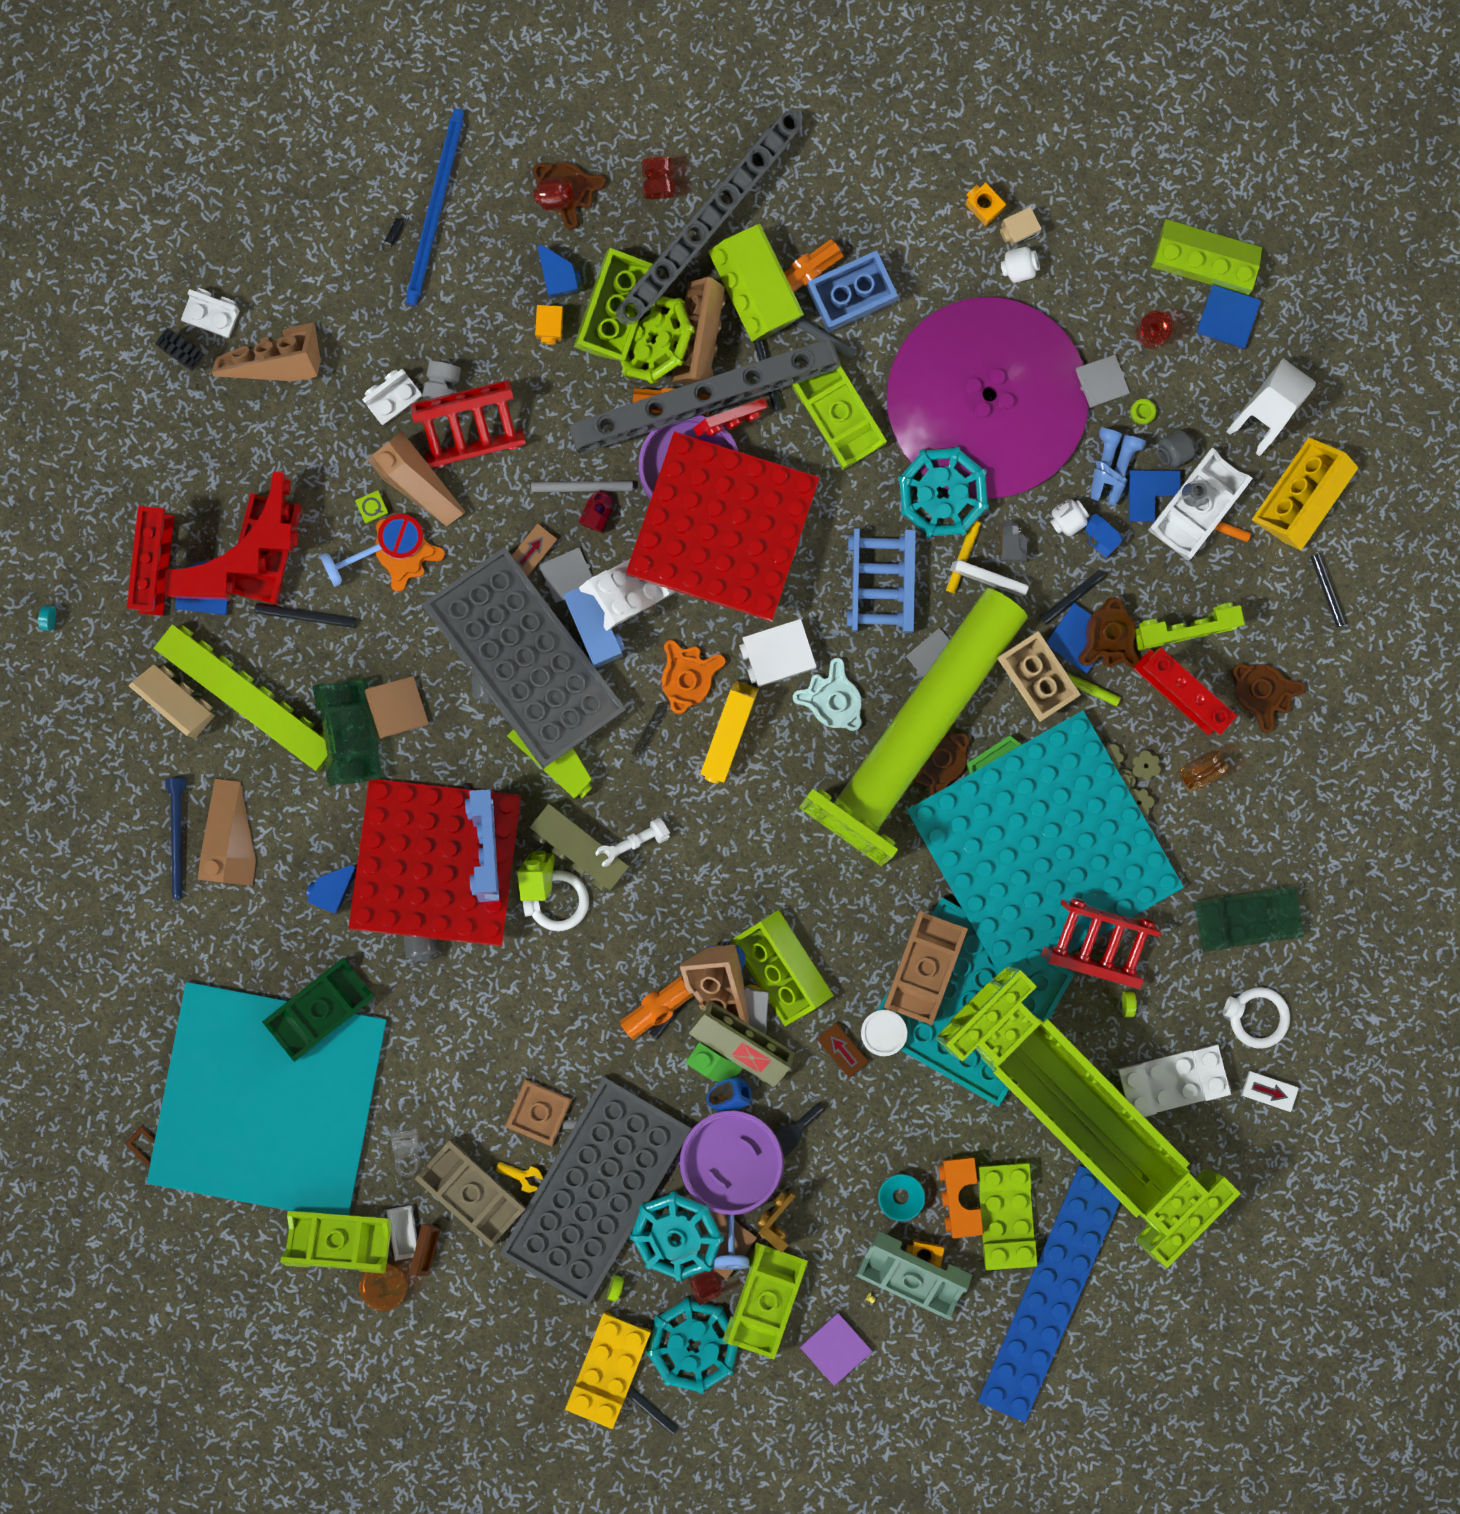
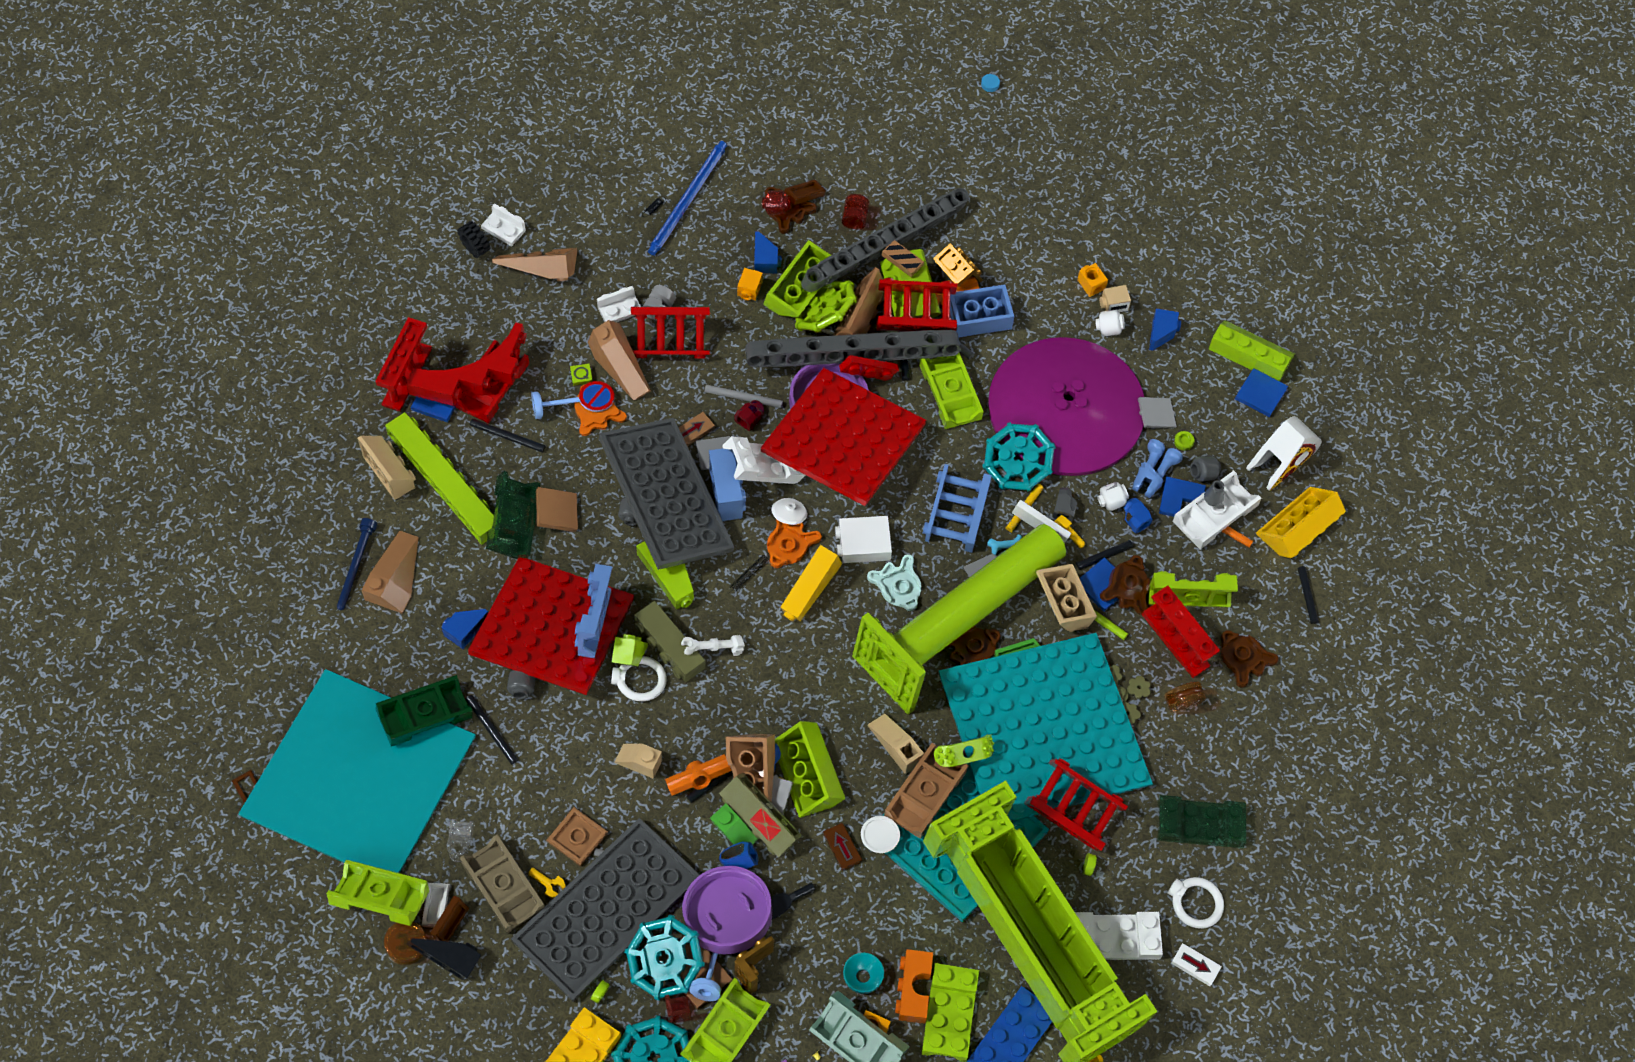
camera: 10 degrees right, 25 degrees down
(47, 617) = (312, 391): teal tile -> none
(400, 1005) = (491, 729): none -> black bar
(436, 1292) = (452, 956): none -> black slope
(582, 1003) = (640, 759): none -> tan slope
(584, 162) = (805, 191): none -> reddish brown tile
(678, 635) = (789, 511): none -> white piece
(738, 248) = (902, 258): none -> medium nougat tile
(788, 336) = (907, 322): none -> red fence
(810, 233) = (957, 265): none -> bracket
(875, 909) = (897, 743): none -> tan slope
(941, 619) = (998, 545): none -> medium azure piece
(949, 924) = (953, 755): none -> lime piece
(1025, 578) = (1065, 523): none -> yellow bar
(1089, 253) = (1163, 327): none -> blue slope
(1154, 330) = (1203, 385): clear red wheel -> none

